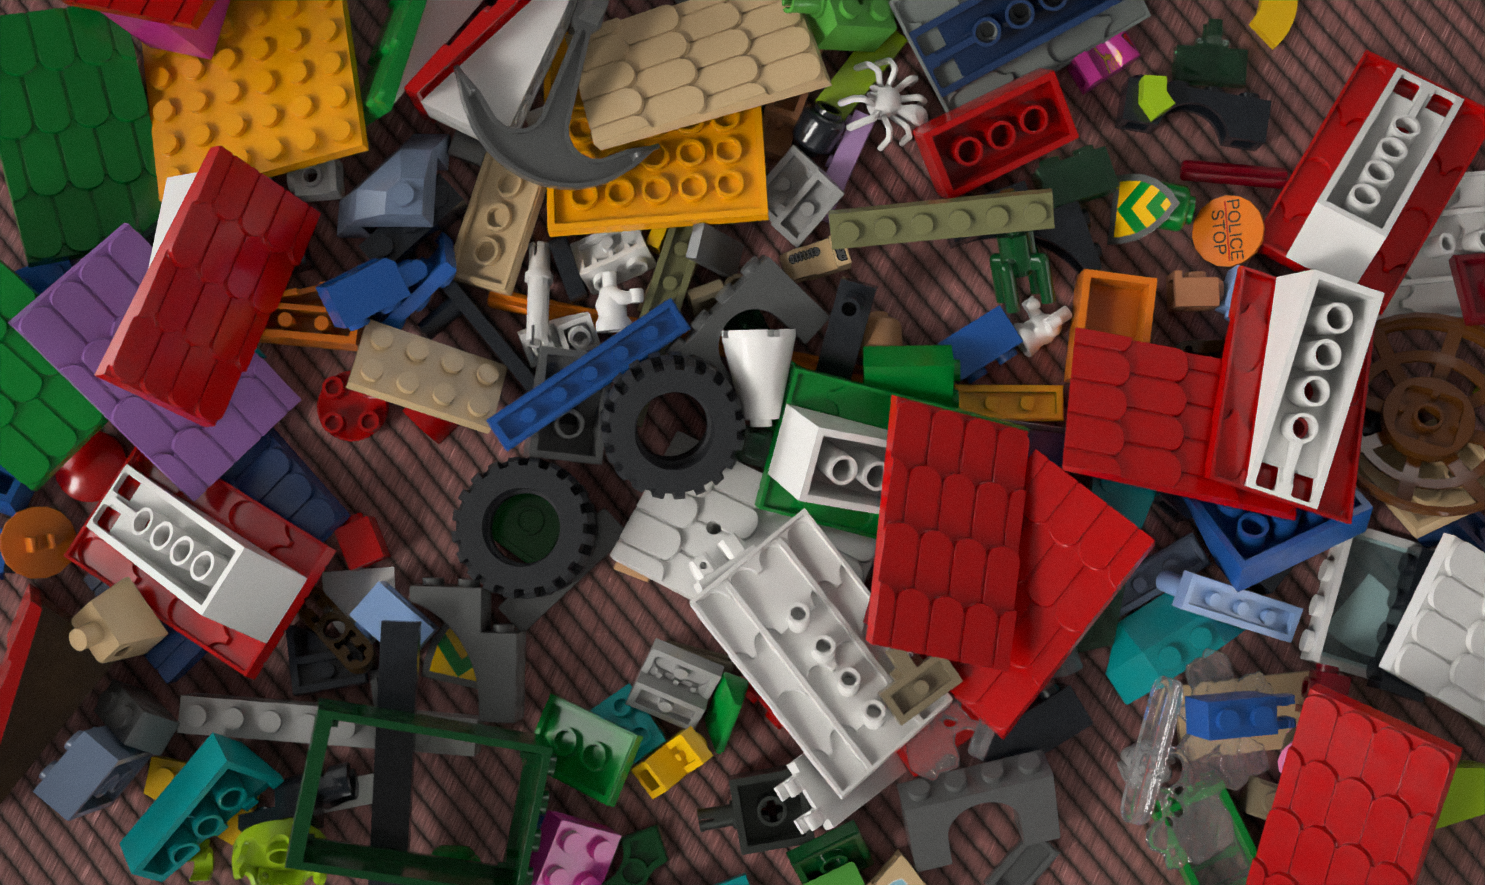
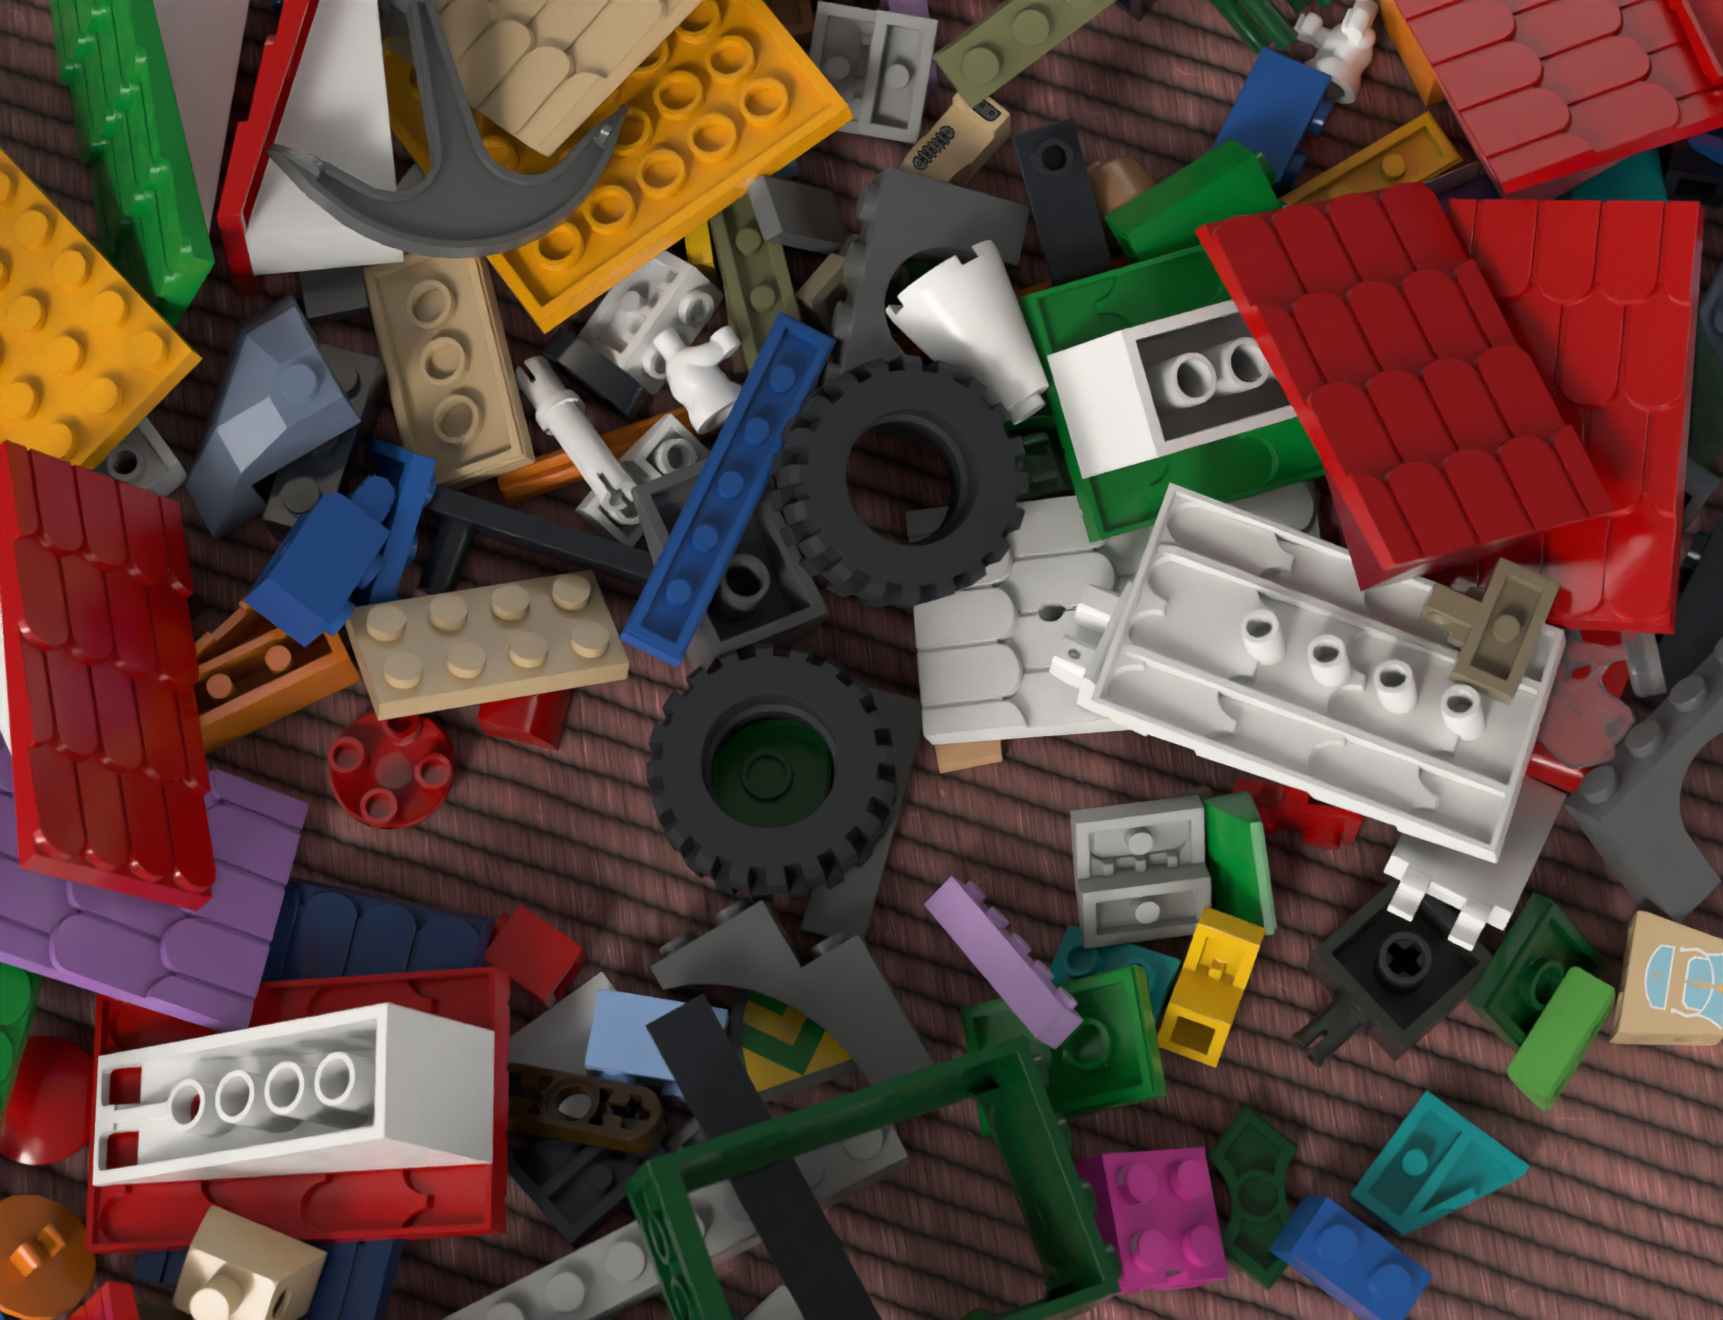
camera: 25 degrees left, 10 degrees down
(580, 689) = (1005, 961): none -> lavender piece

